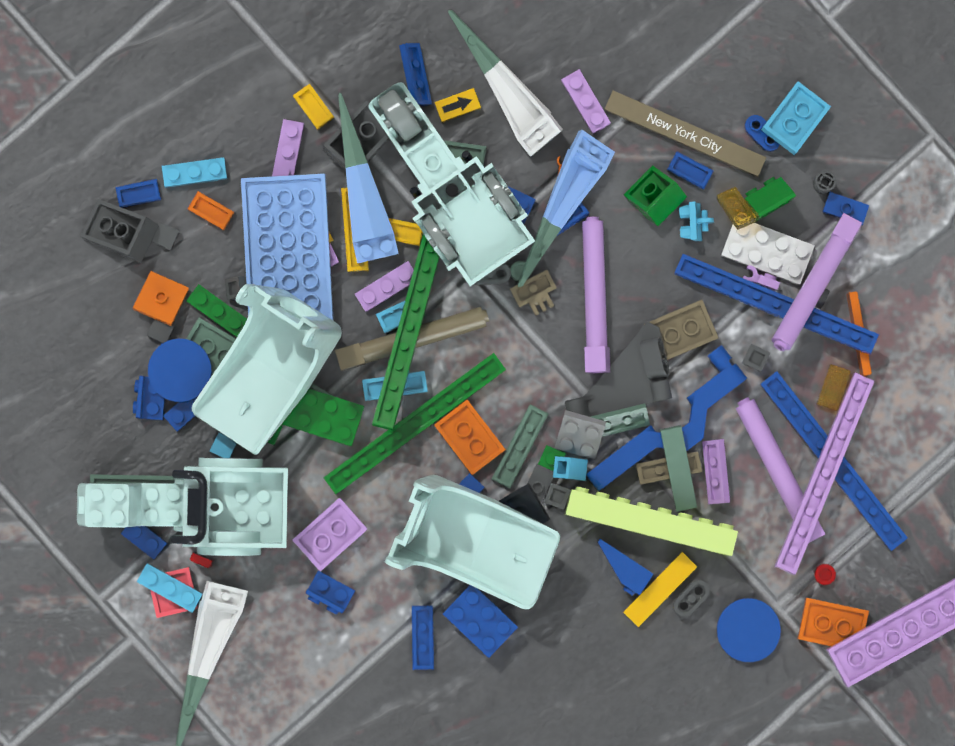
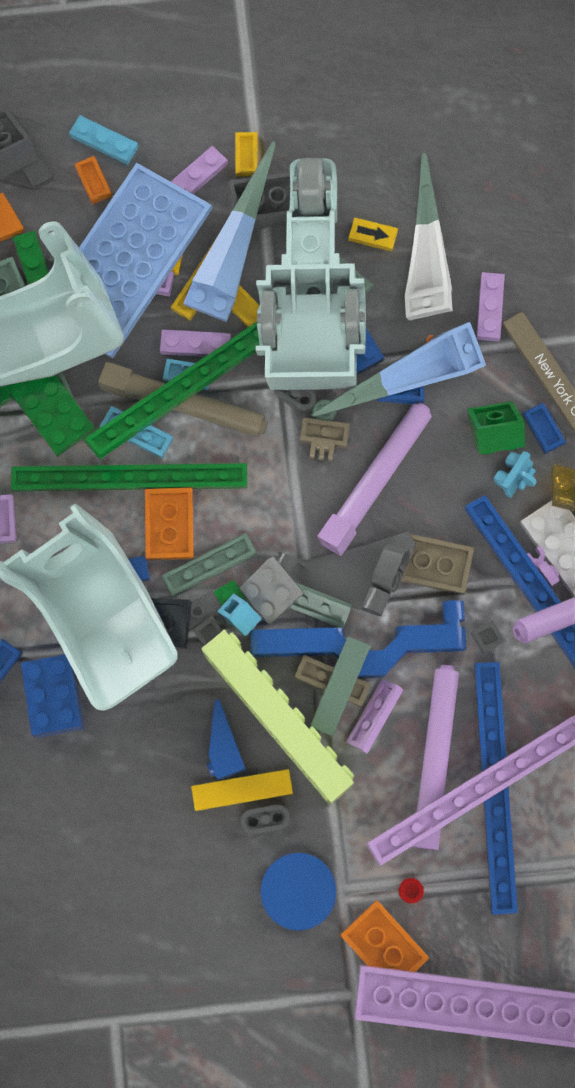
camera: 40 degrees right, 10 degrees down
(138, 193) = (43, 125): blue tile -> none
(415, 73) = (355, 183): blue plate -> none
(833, 387) = (543, 717): clear yellow plate -> none

